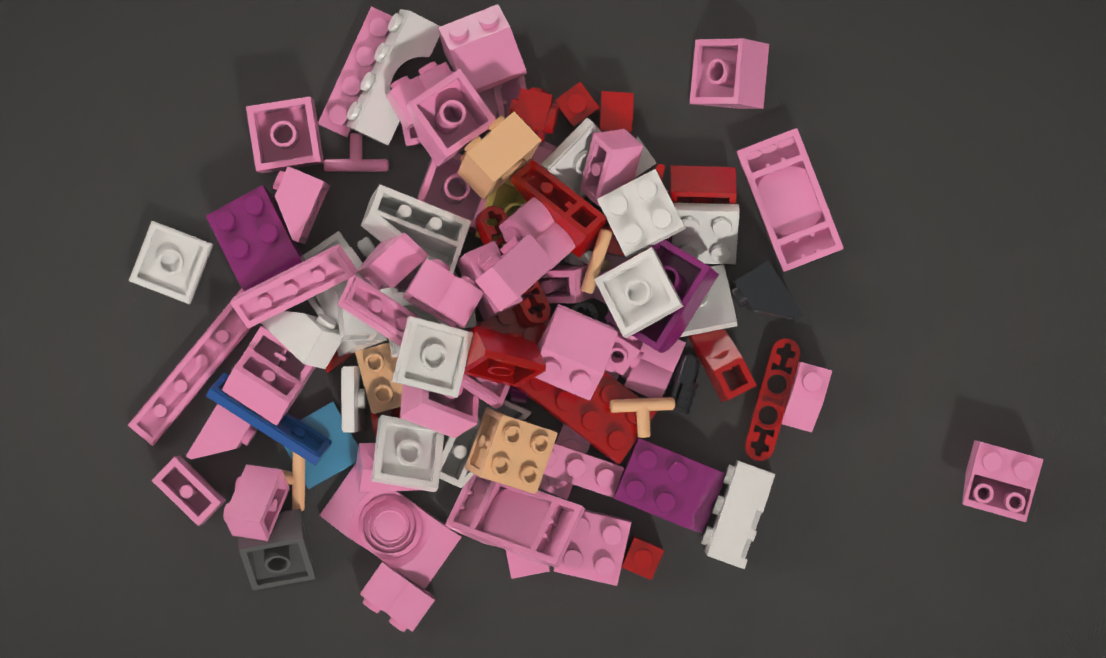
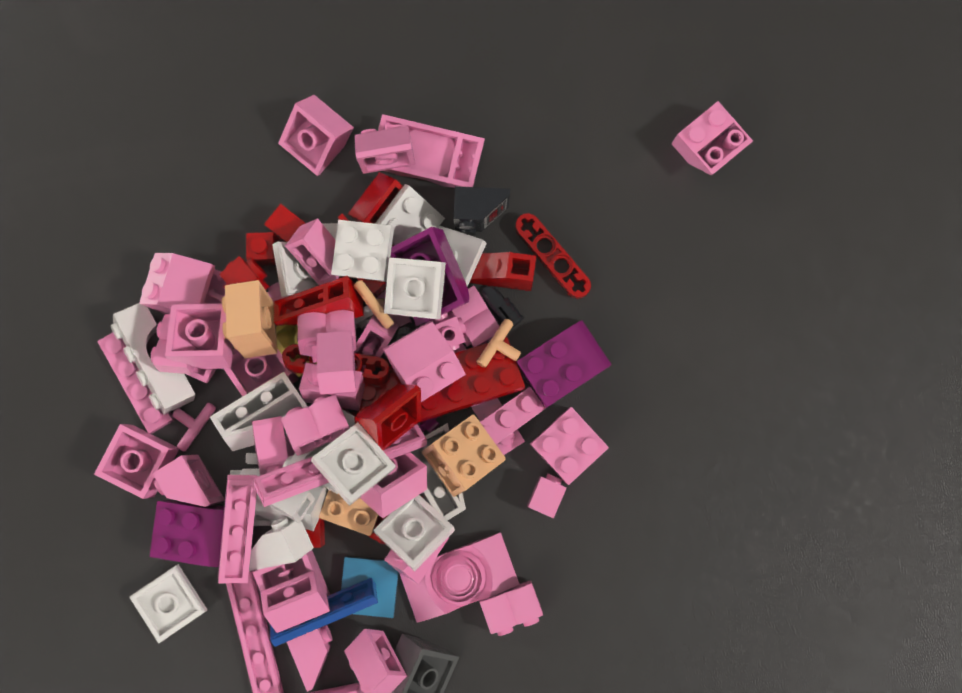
camera: 55 degrees left, 5 degrees down
(297, 480) = (380, 621): light nougat piece -> none
(352, 399) = (351, 543): white plate -> none
(516, 520) = (514, 486): bright pink slope -> none
(642, 557) = (601, 416): red brick -> none
(737, 513) = (615, 330): white wedge -> none
(761, 158) = (384, 149): none -> bright pink slope
(806, 396) = (566, 229): bright pink slope -> none

